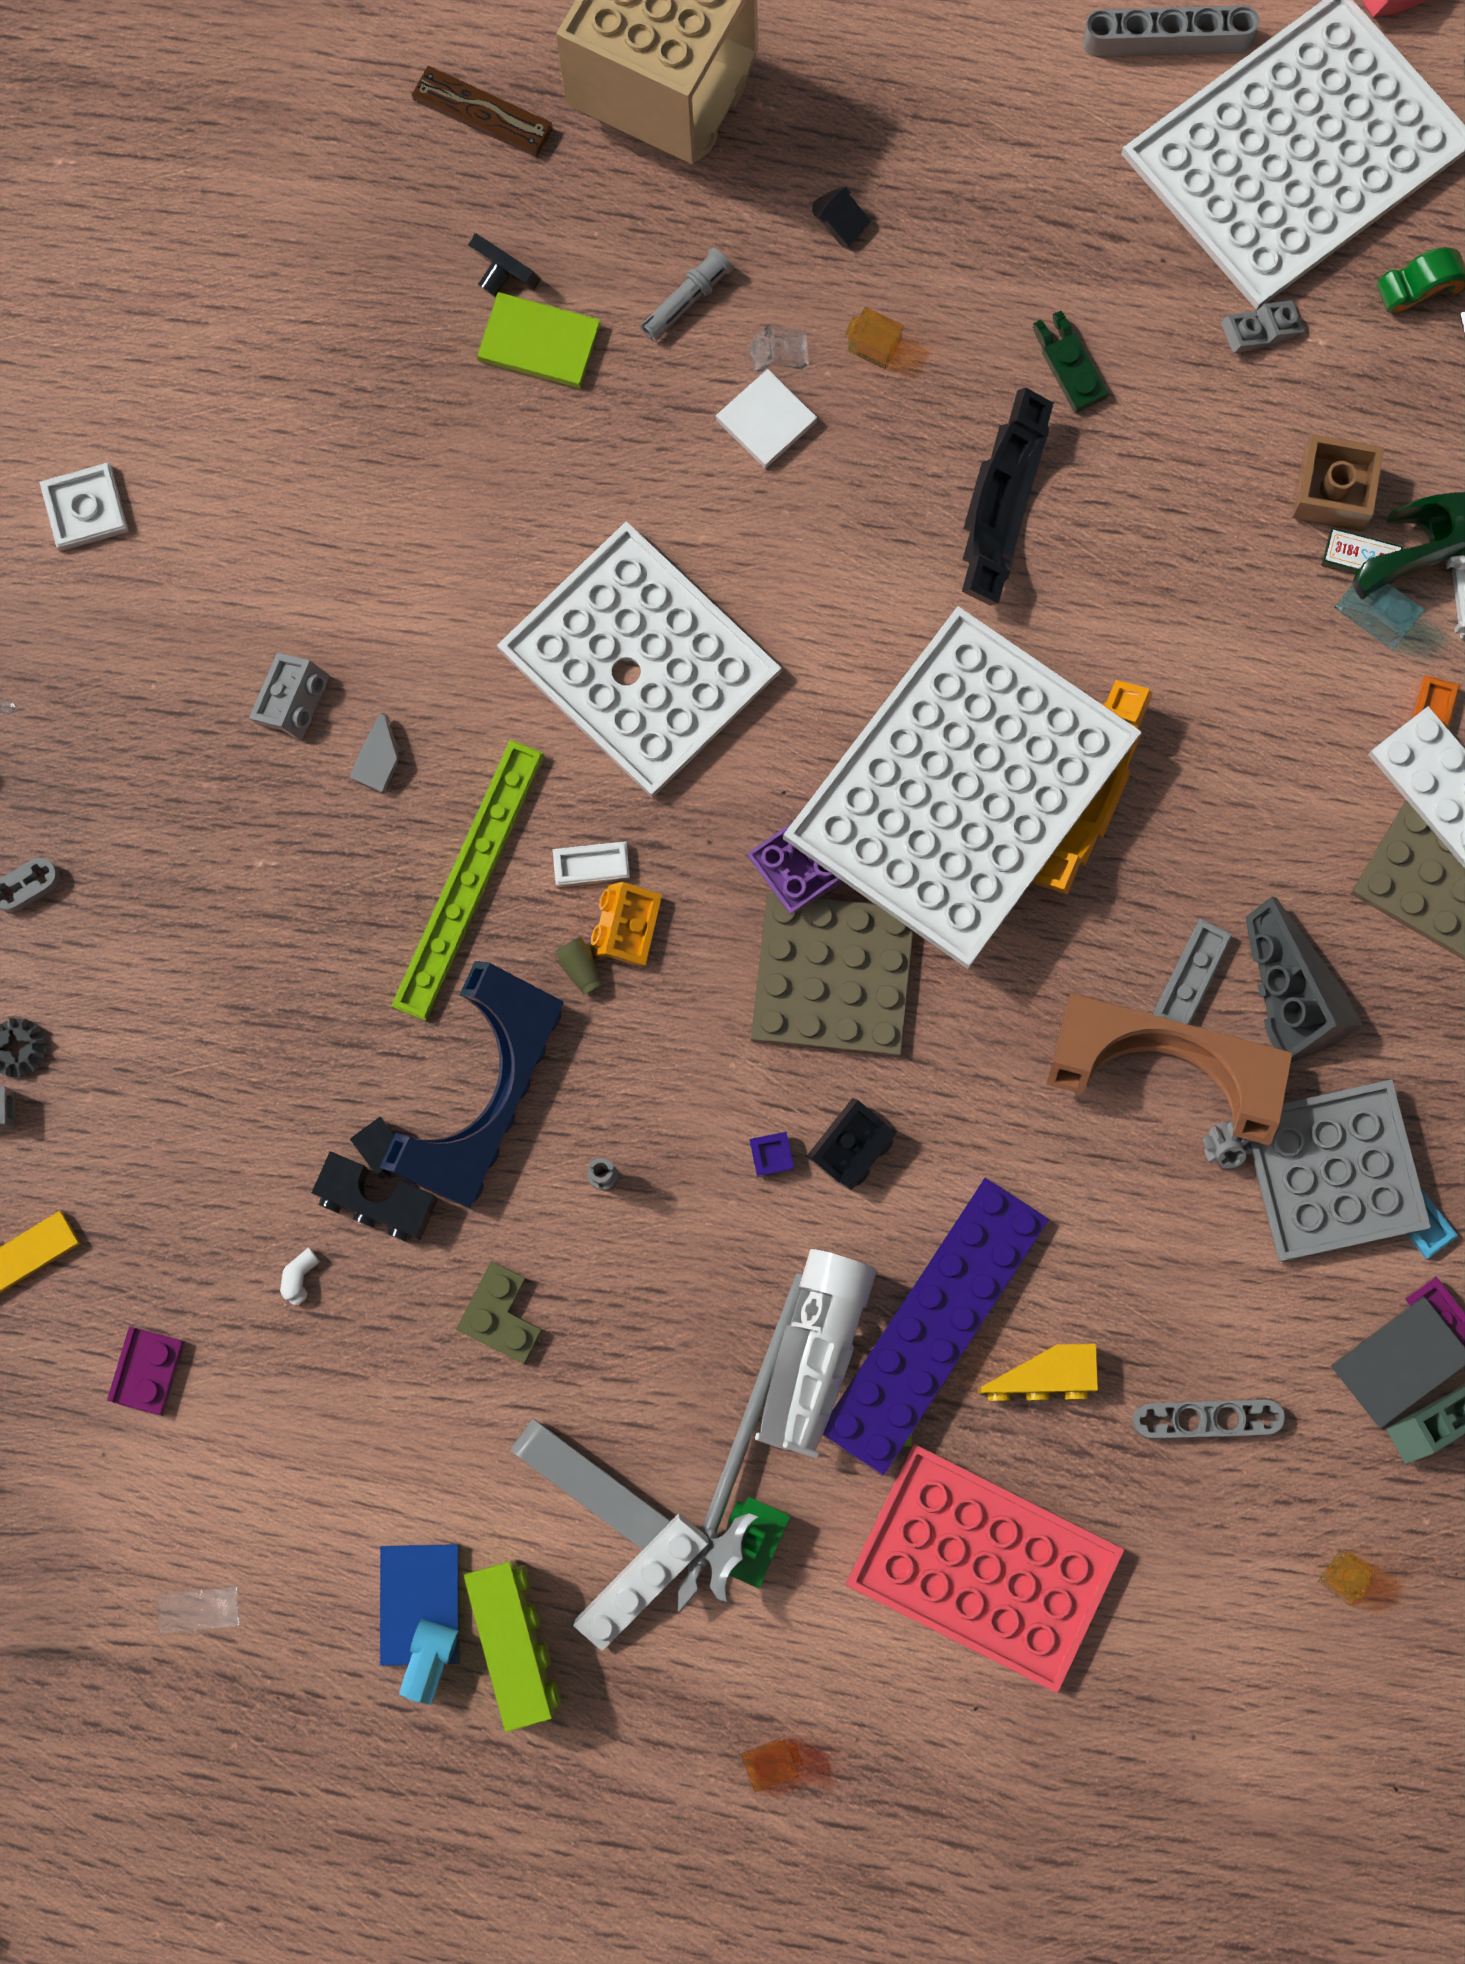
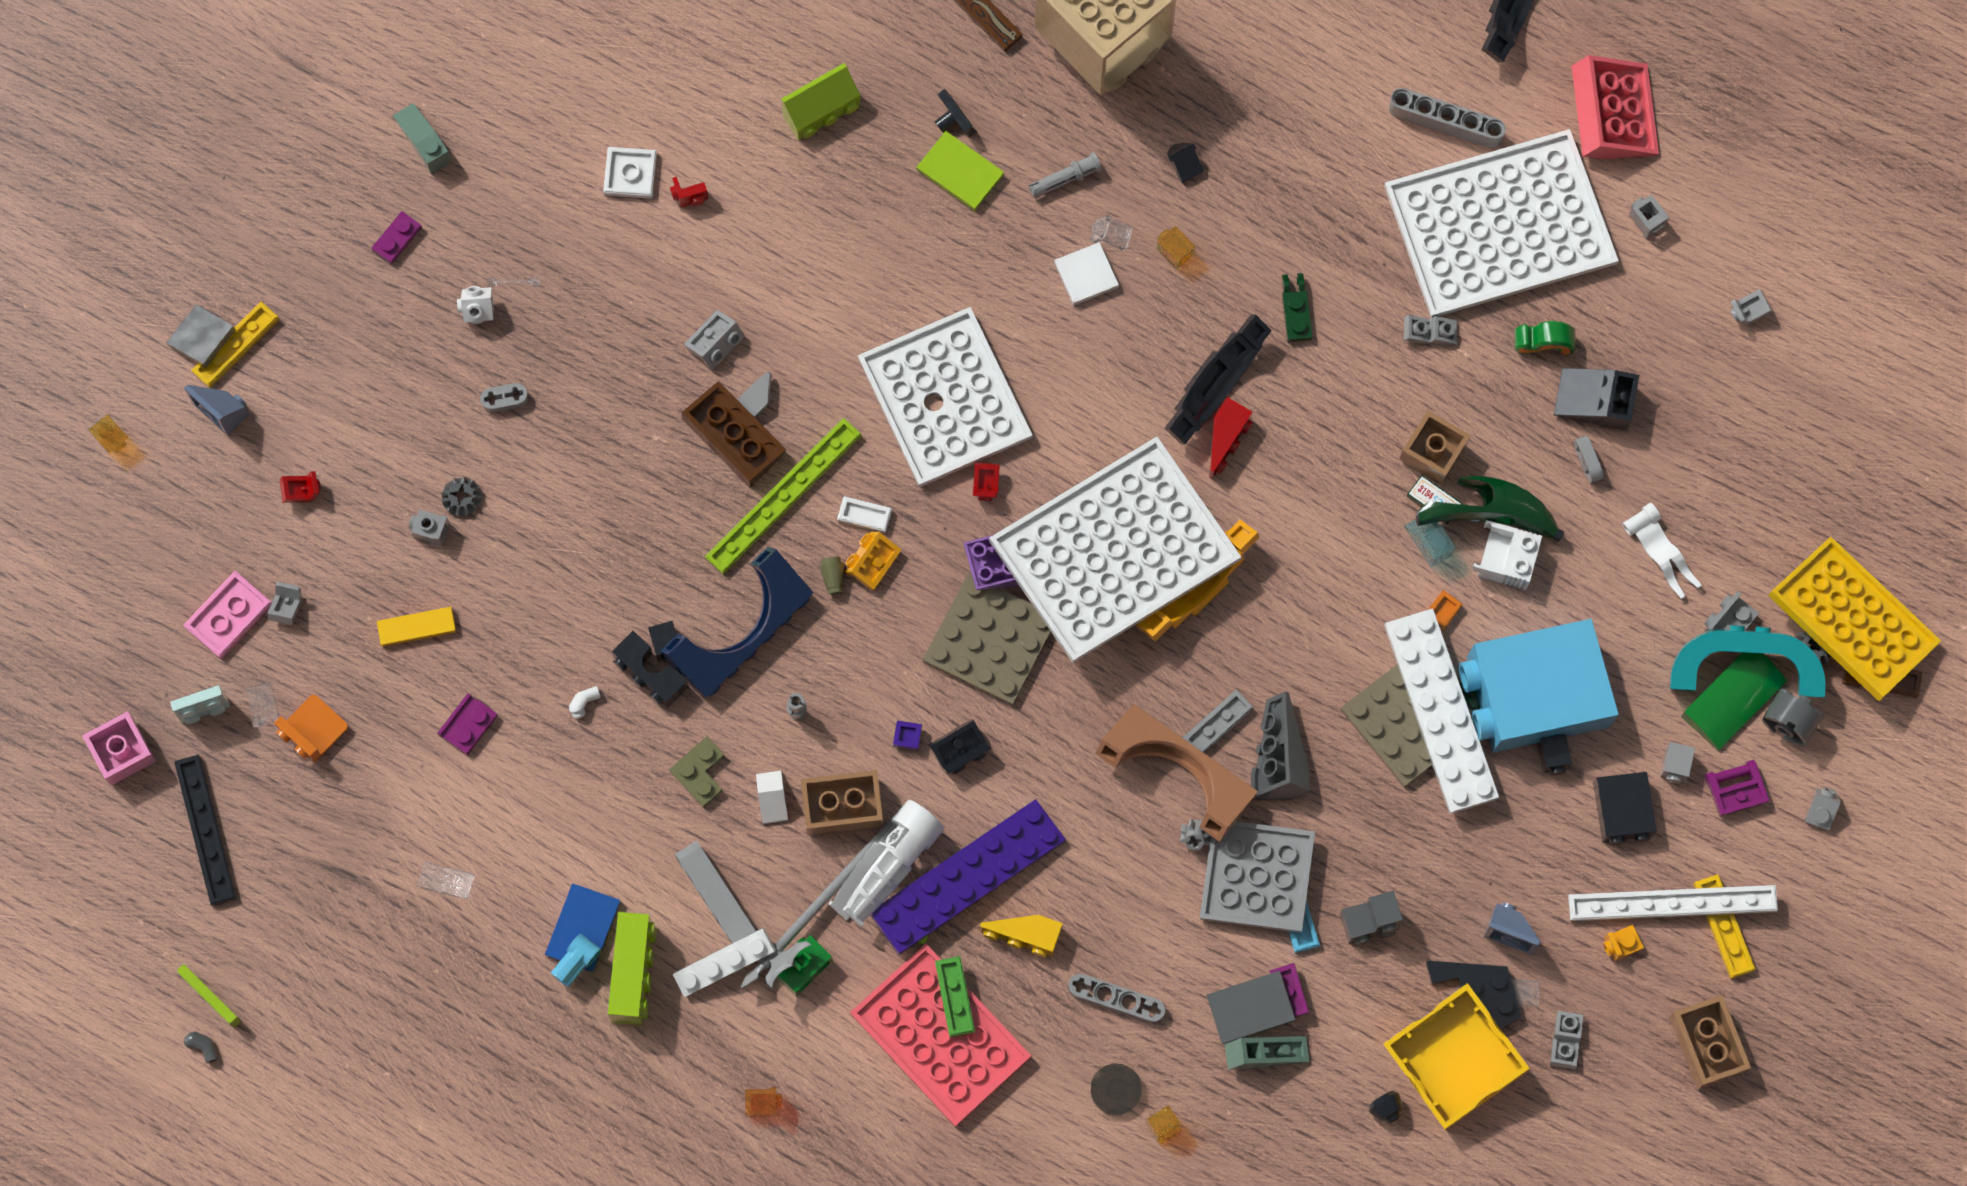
camera: 15 degrees right, 5 degrees down
(180, 507) = (691, 195): none -> red bracket
(311, 312) = (821, 102): none -> lime slope
(365, 818) = (733, 433): none -> reddish brown slope
(615, 1313) = (771, 797): none -> white slope
(718, 1286) = (842, 802): none -> medium nougat brick
(742, 755) = (986, 481): none -> red bracket
(985, 1507) = (954, 996): none -> bright green tile
(1042, 564) = (1228, 426): none -> red slope
(1259, 1550) = (1116, 1089): none -> clear smoke tile

